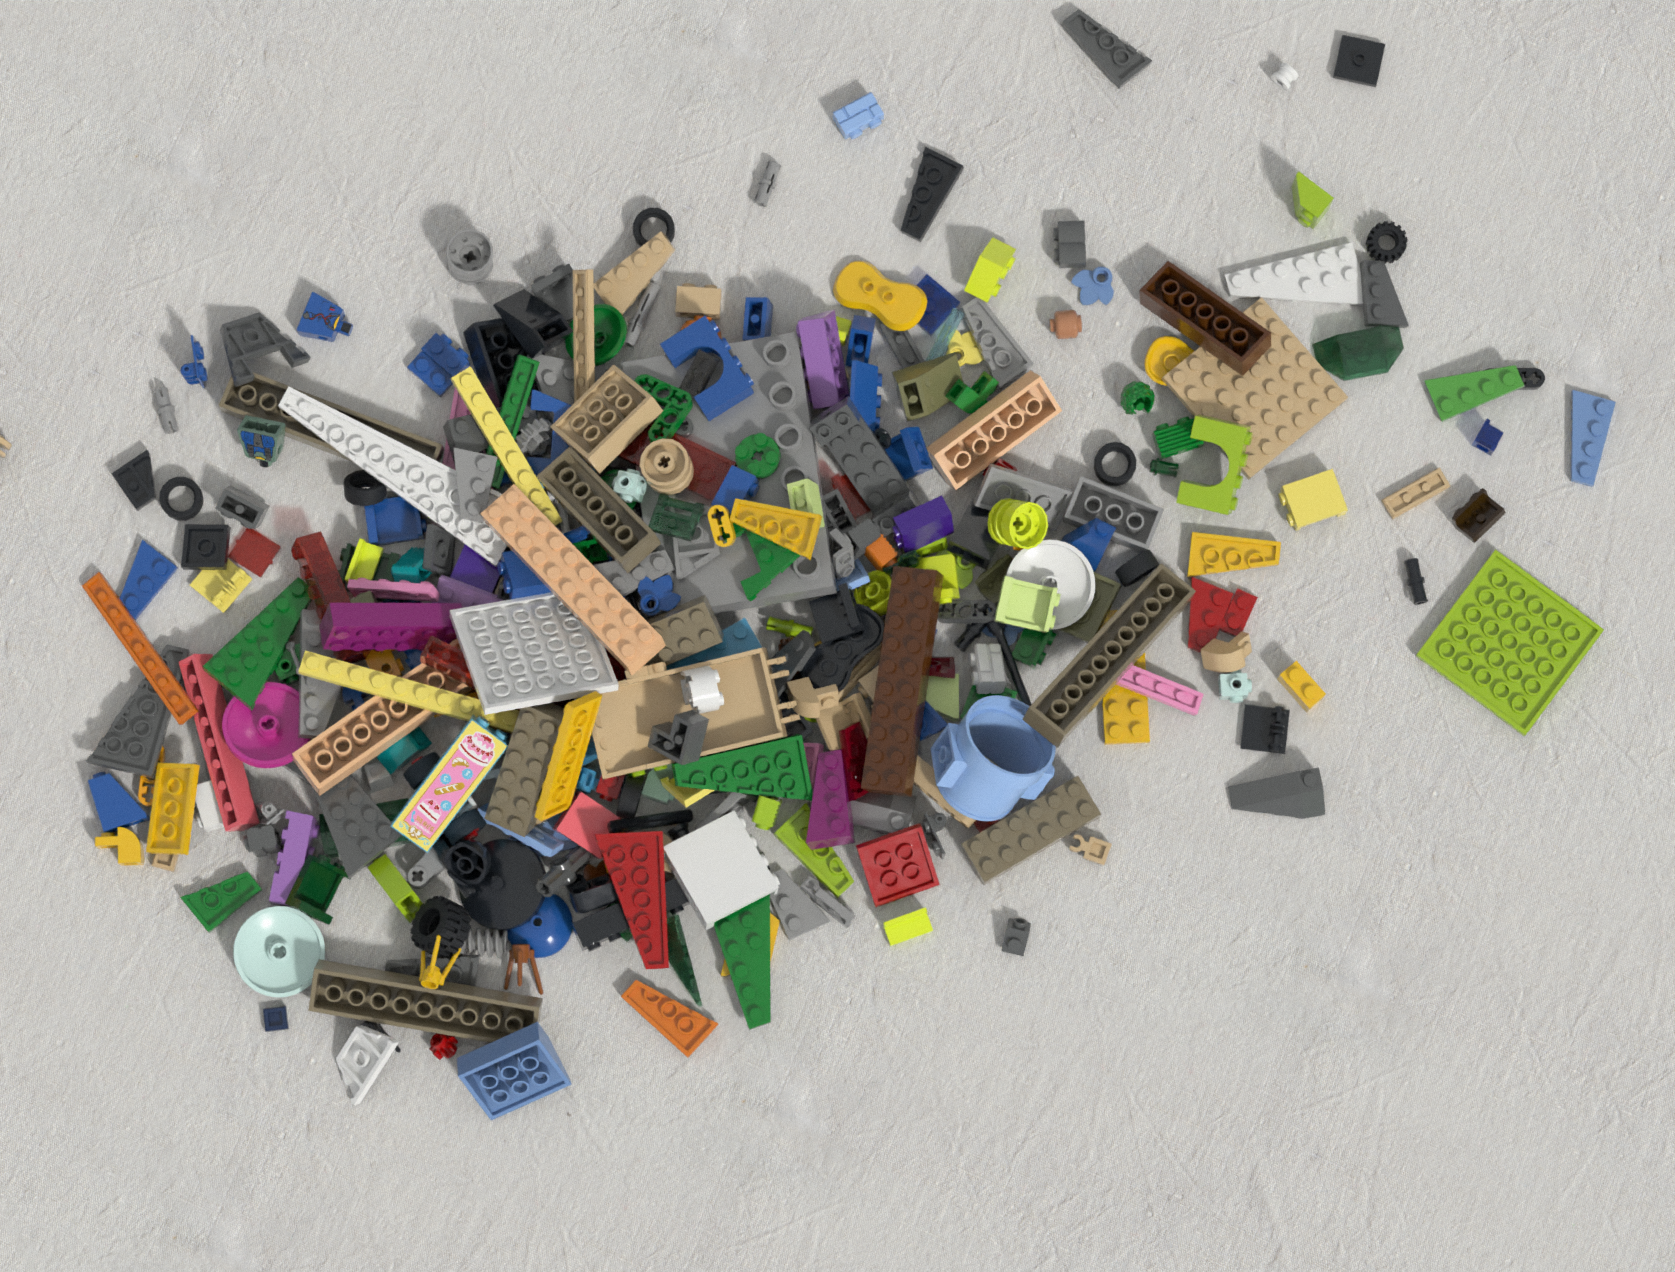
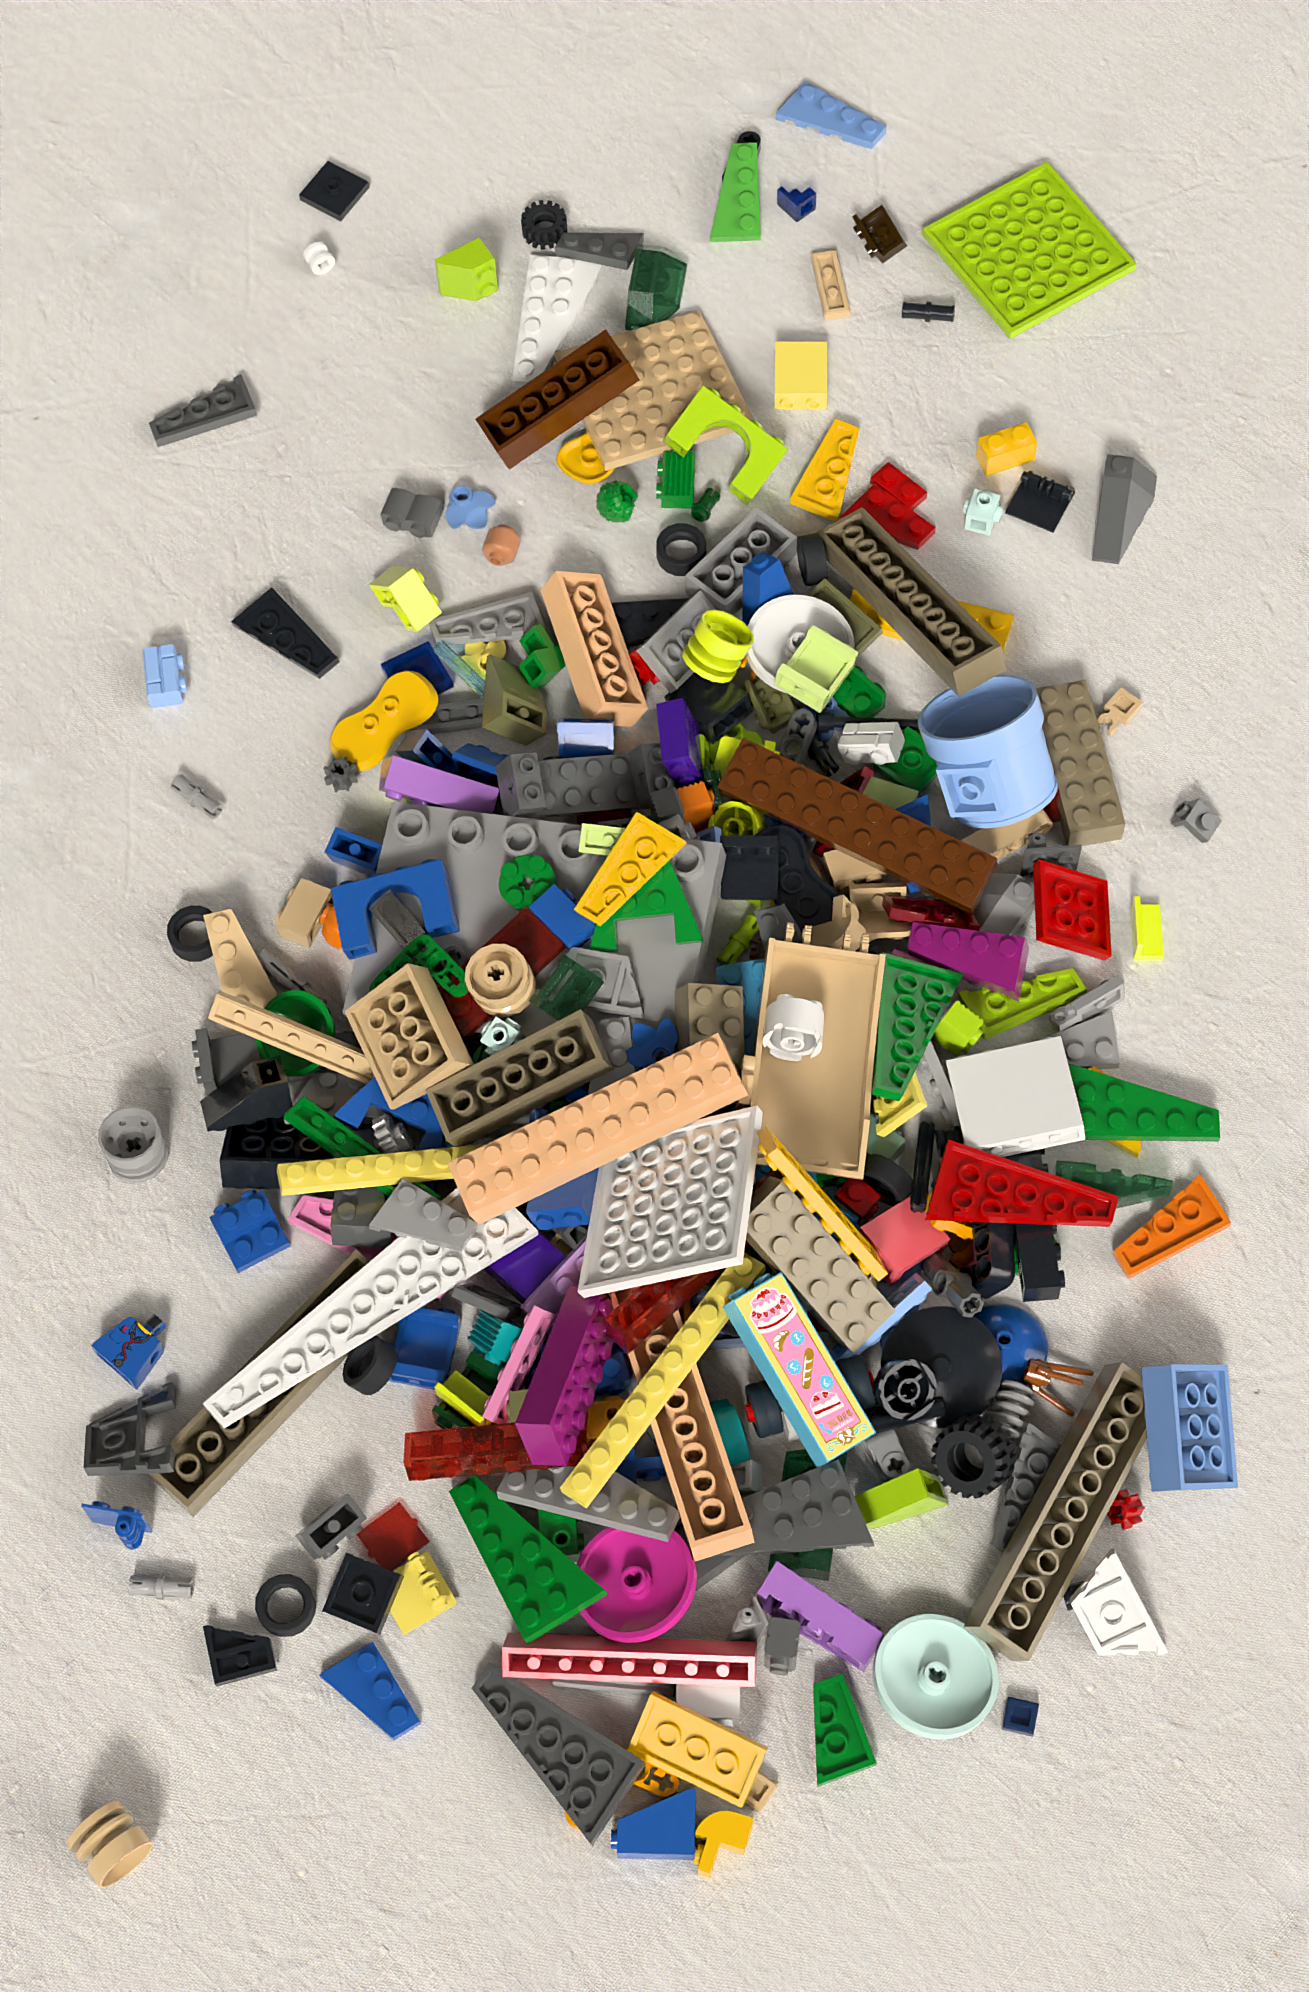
camera: 65 degrees left, 15 degrees down
(140, 648) = (463, 1722): orange tile -> none
(262, 439) = (255, 1467): torso -> none
(291, 648) = (540, 1523): light grey hinge -> none
(316, 887) = (865, 1598): dark green panel -> none
(431, 977) = (1040, 1477): yellow plant -> none
(681, 739) = (853, 1066): dark grey brick -> none
(726, 524) = (600, 946): yellow beam -> none
(822, 276) = (338, 767): none -> dark grey gear
(1042, 458) = (643, 618): none -> black wing
(1161, 690) = (969, 572): bright pink plate -> none
(1225, 656) = (946, 506): tan brick -> none

